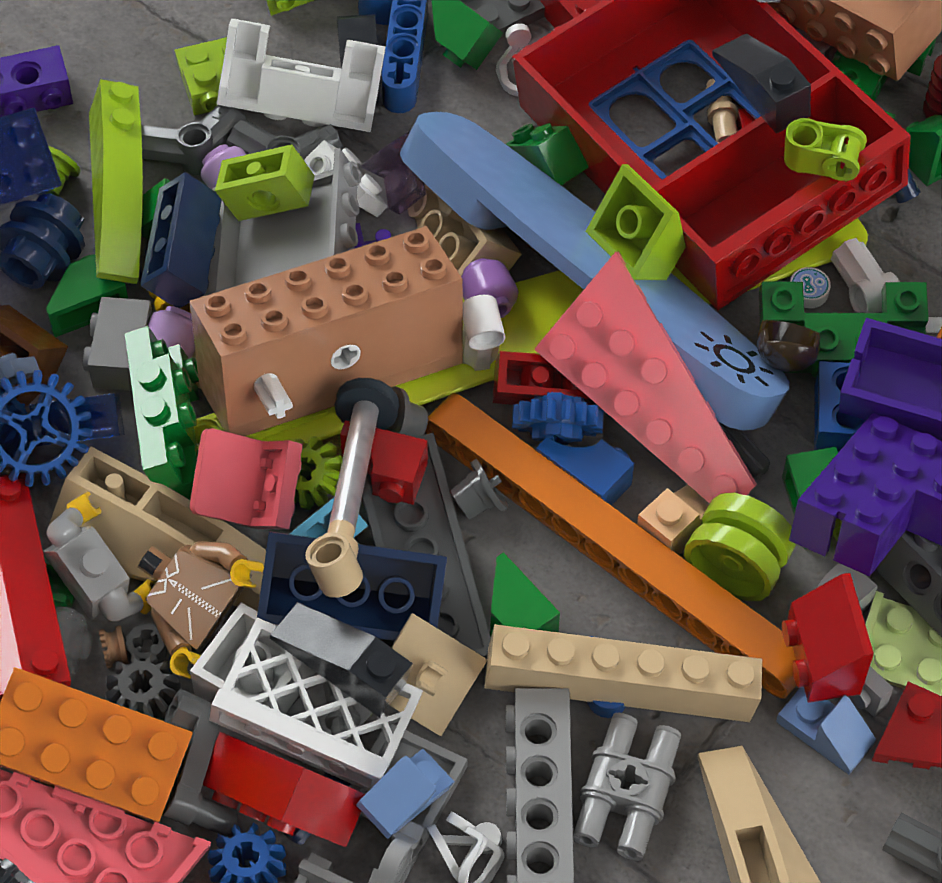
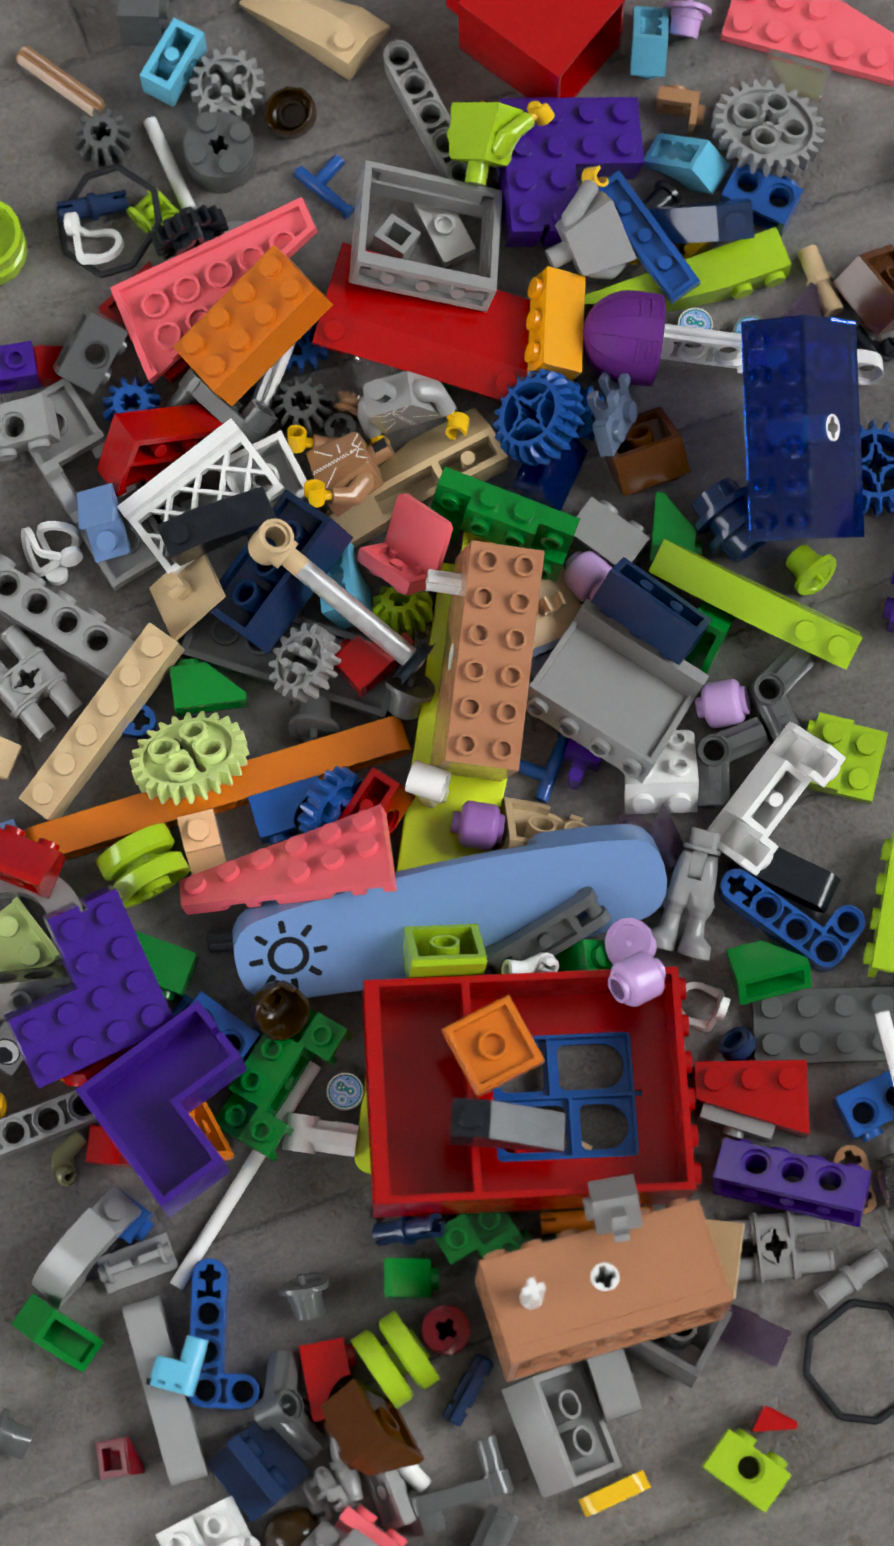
camera: 125 degrees right, 20 degrees up
(265, 183) = (667, 700): lime brick -> none
(403, 105) = (691, 889): none -> light grey piece
(448, 491) = (314, 646): none -> light grey gear
(516, 108) = (627, 938): none -> lavender piece
(540, 20) = (737, 1044): none -> dark blue tile
(548, 171) = (552, 931): none -> dark grey plate
(551, 60) = (637, 979): none -> lavender head
(594, 172) = (538, 963): none -> white arm
(637, 577) = (171, 773): none -> yellowish green gear
(696, 132) = (493, 1046): none -> orange tile
(820, 148) = (395, 1120): lime piece -> none

